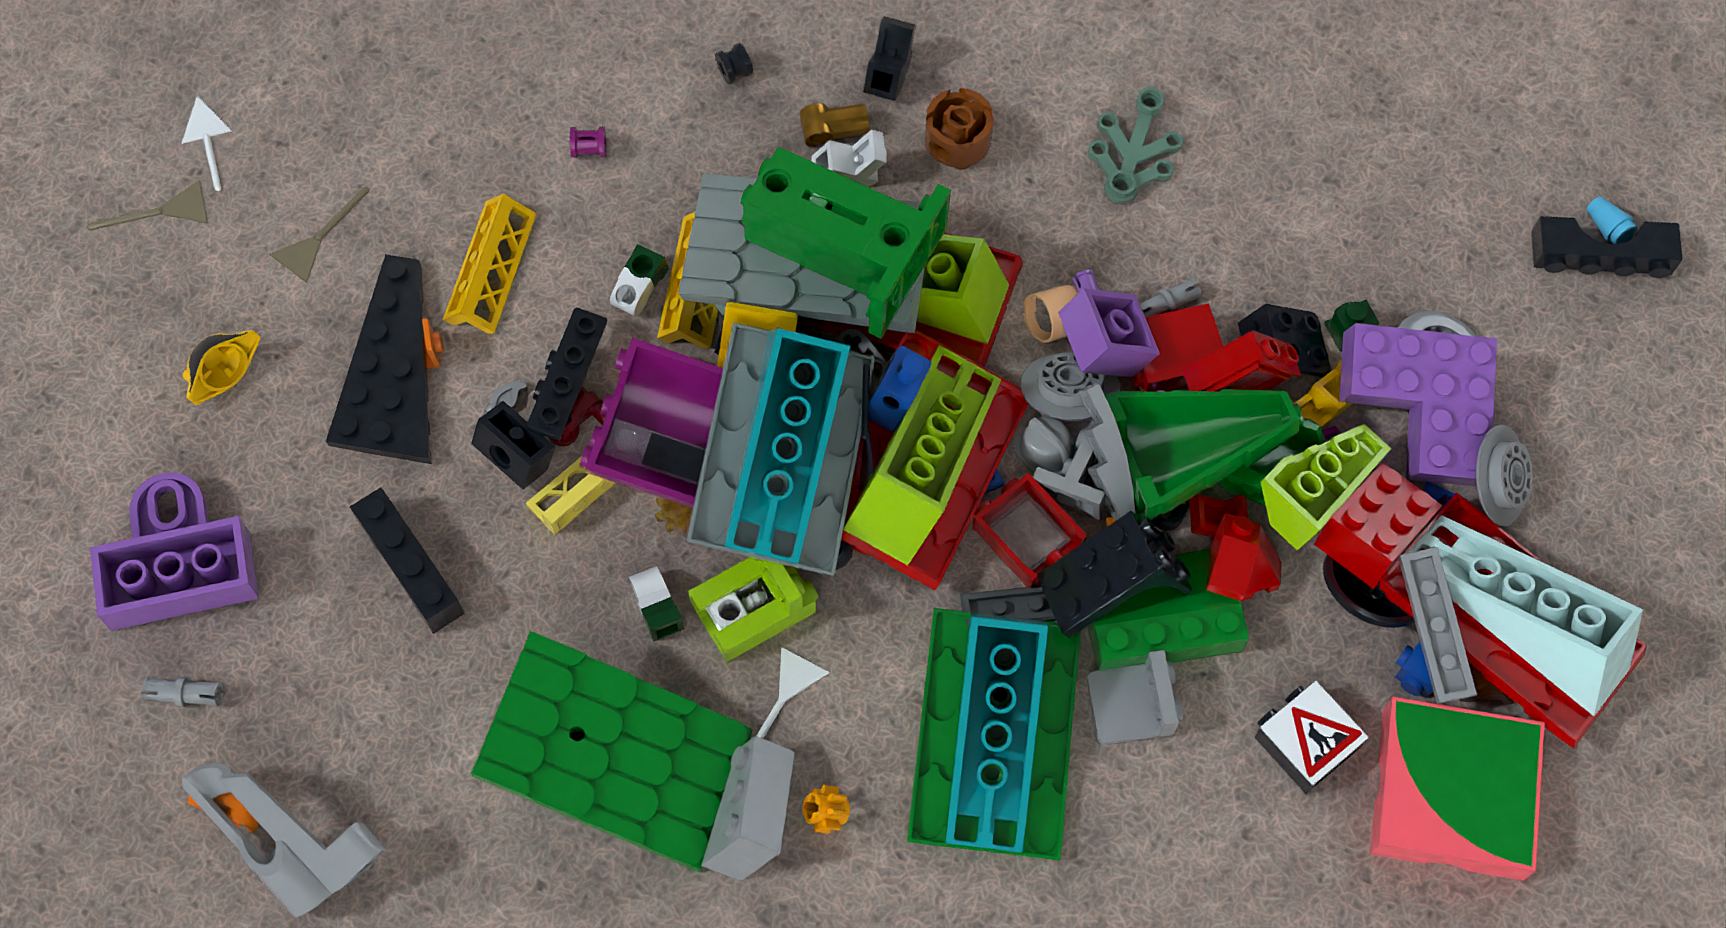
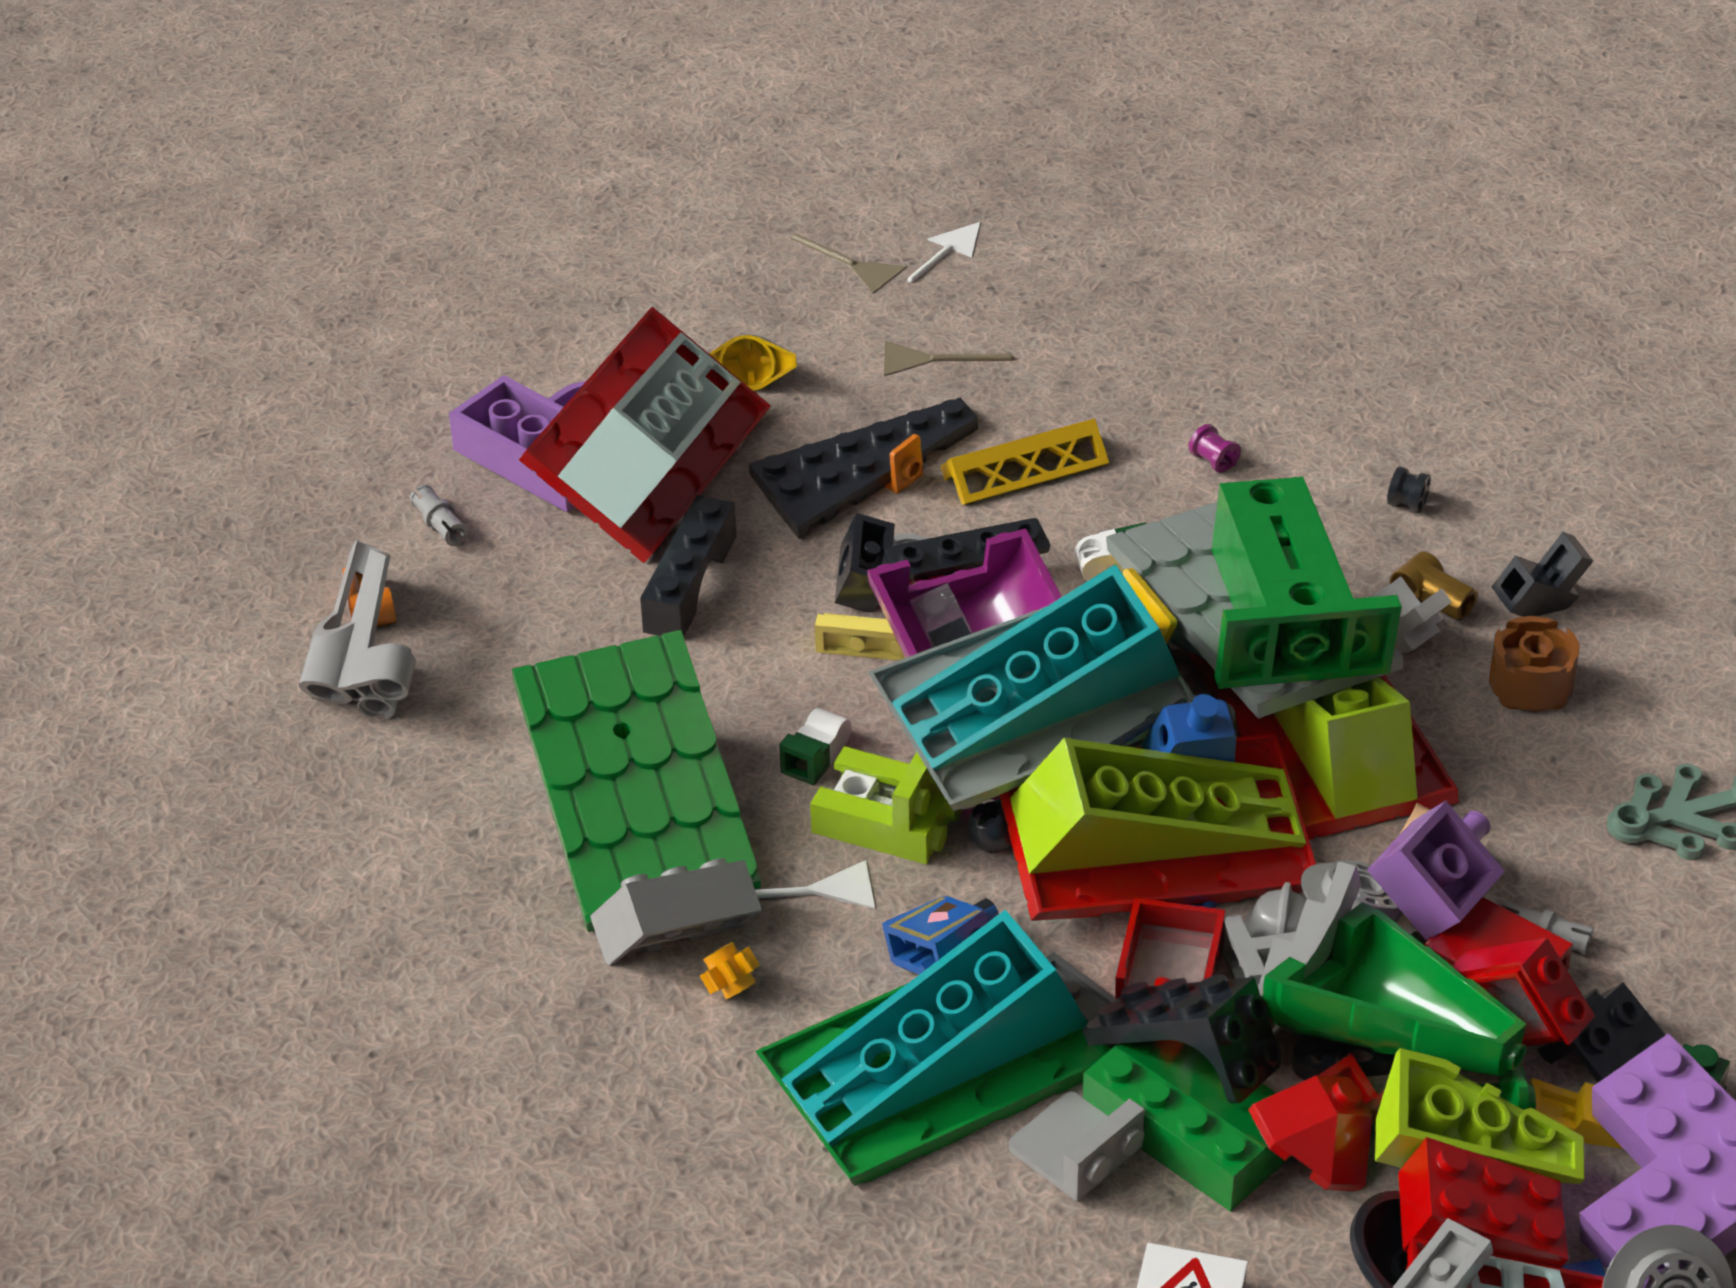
camera: 55 degrees right, 25 degrees down
(251, 494) = (645, 434): none -> piece
(908, 656) = (933, 930): none -> blue torso

